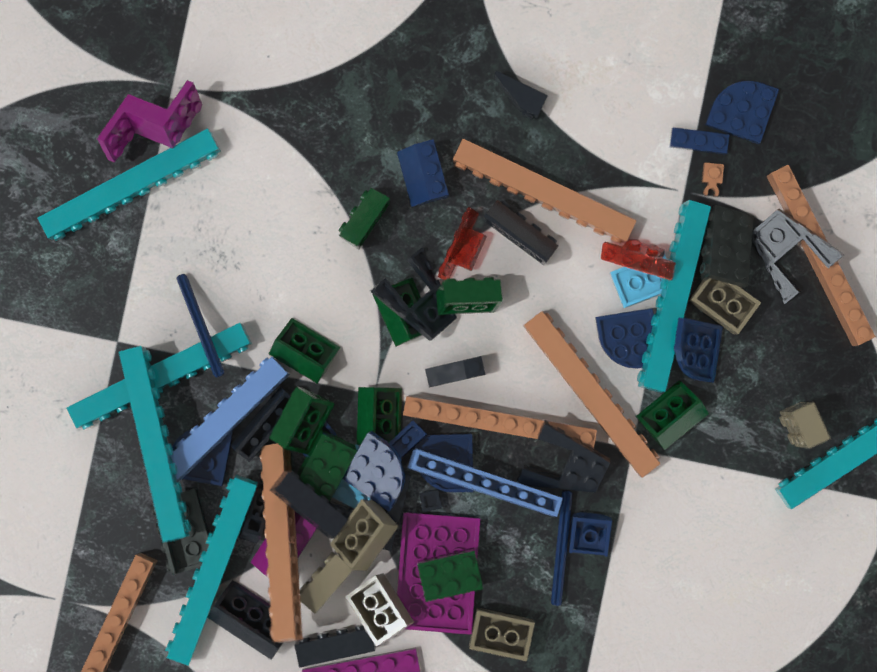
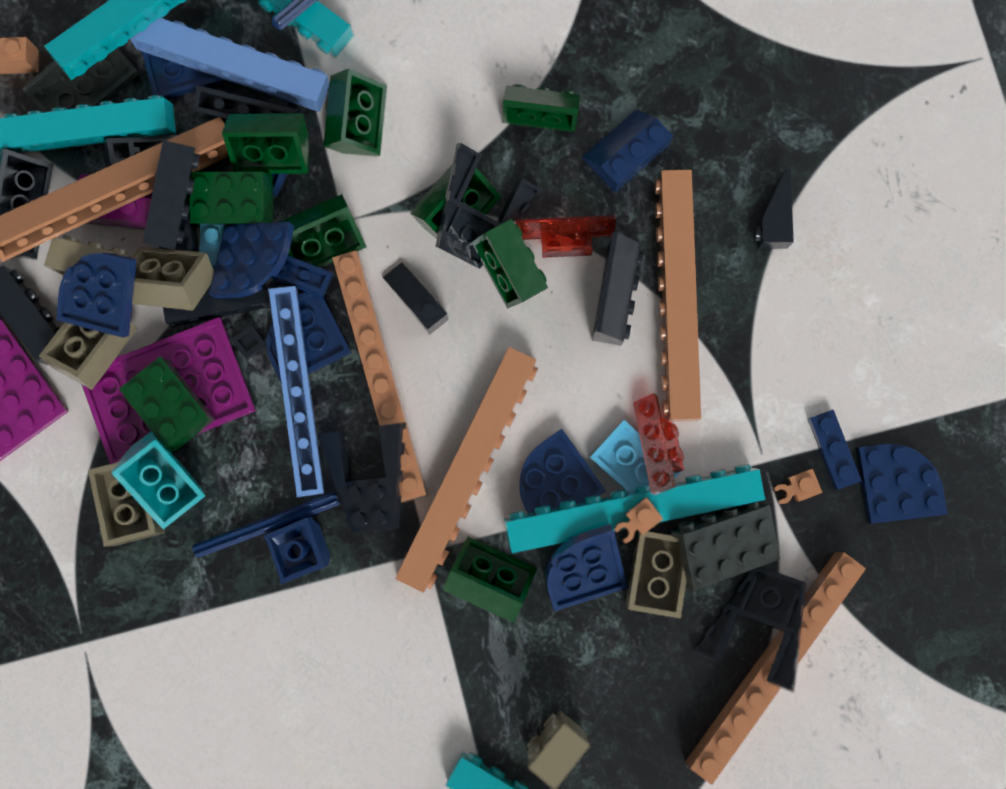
camera: 65 degrees right, 5 degrees down
(356, 584) = (98, 293): none -> dark blue plate
(500, 604) = (157, 480): none -> teal slope
(683, 295) = (641, 518): none -> nougat plate

